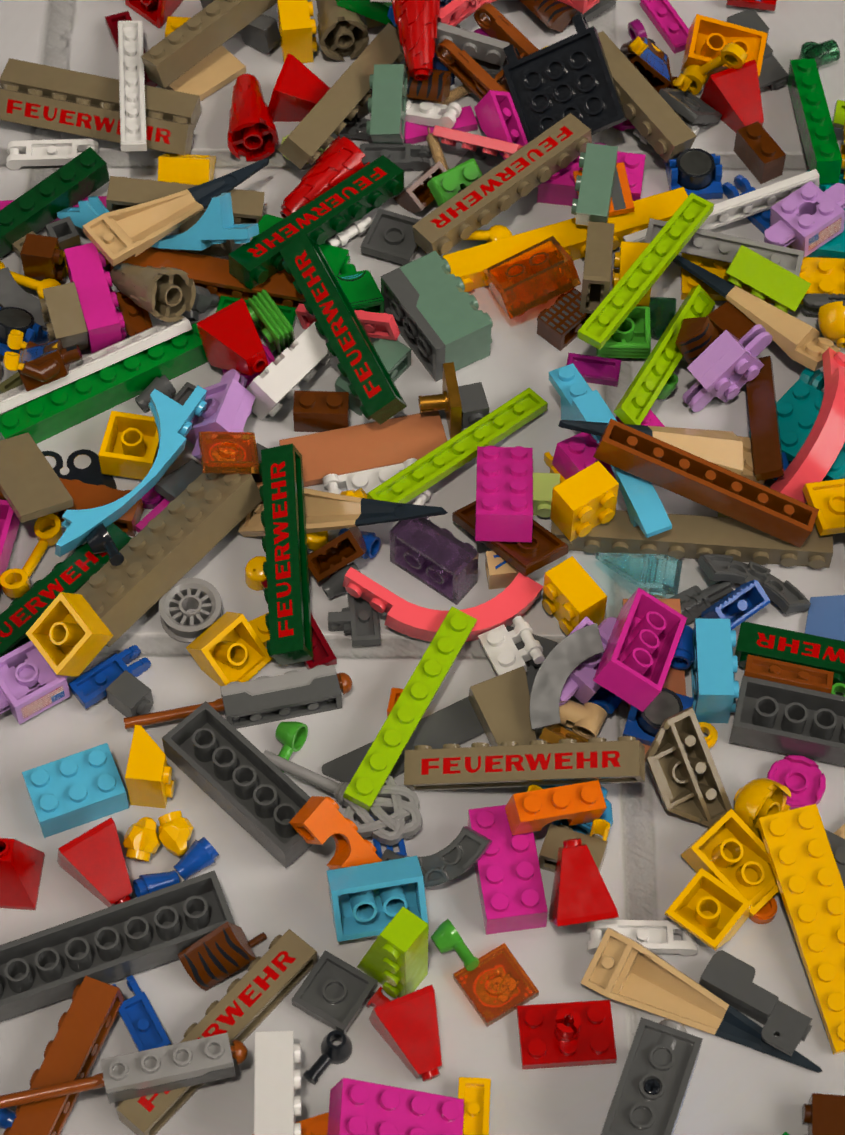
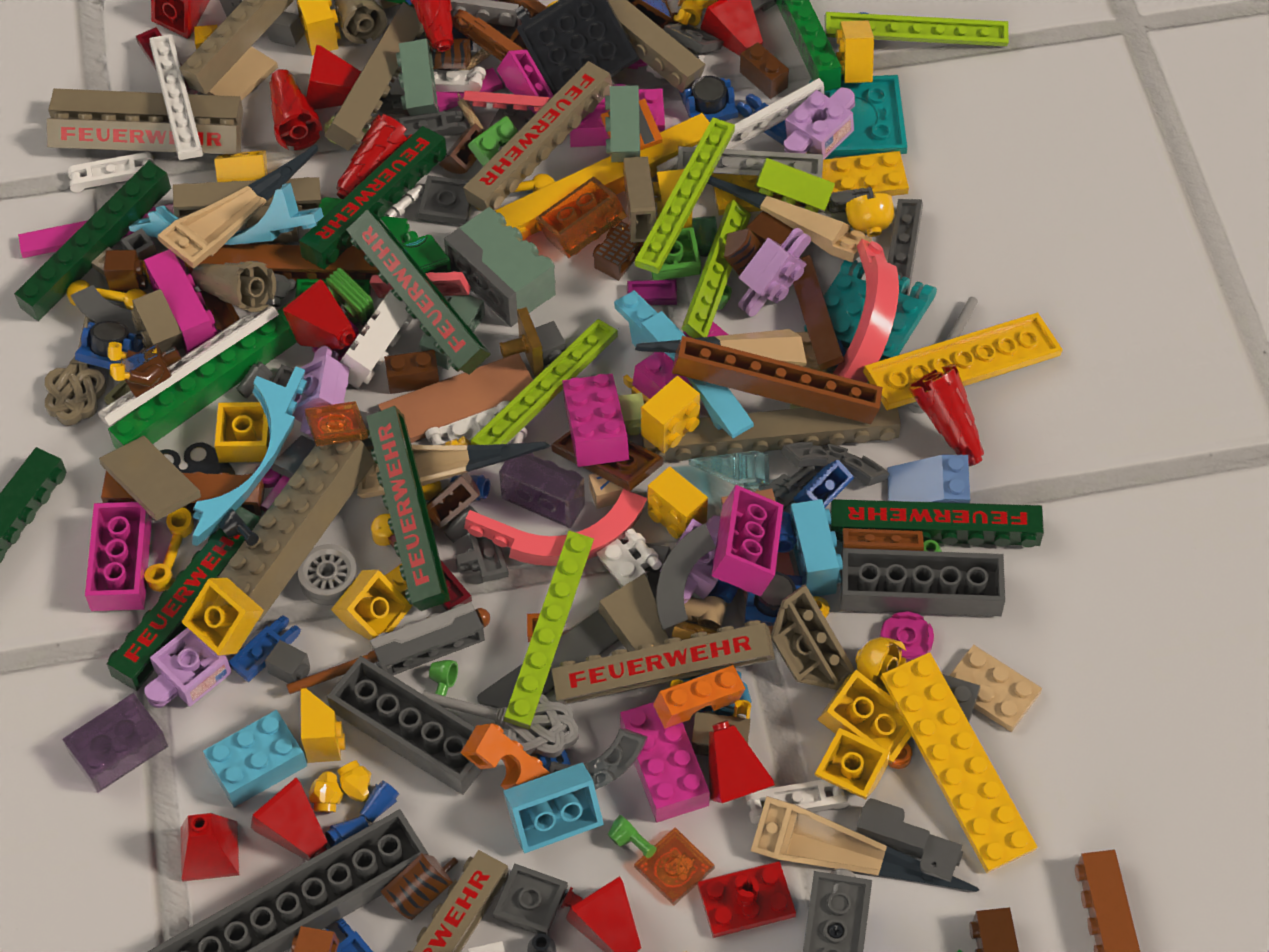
camera: 10 degrees left, 0 degrees up
(399, 955) = (584, 855): lime wedge -> none

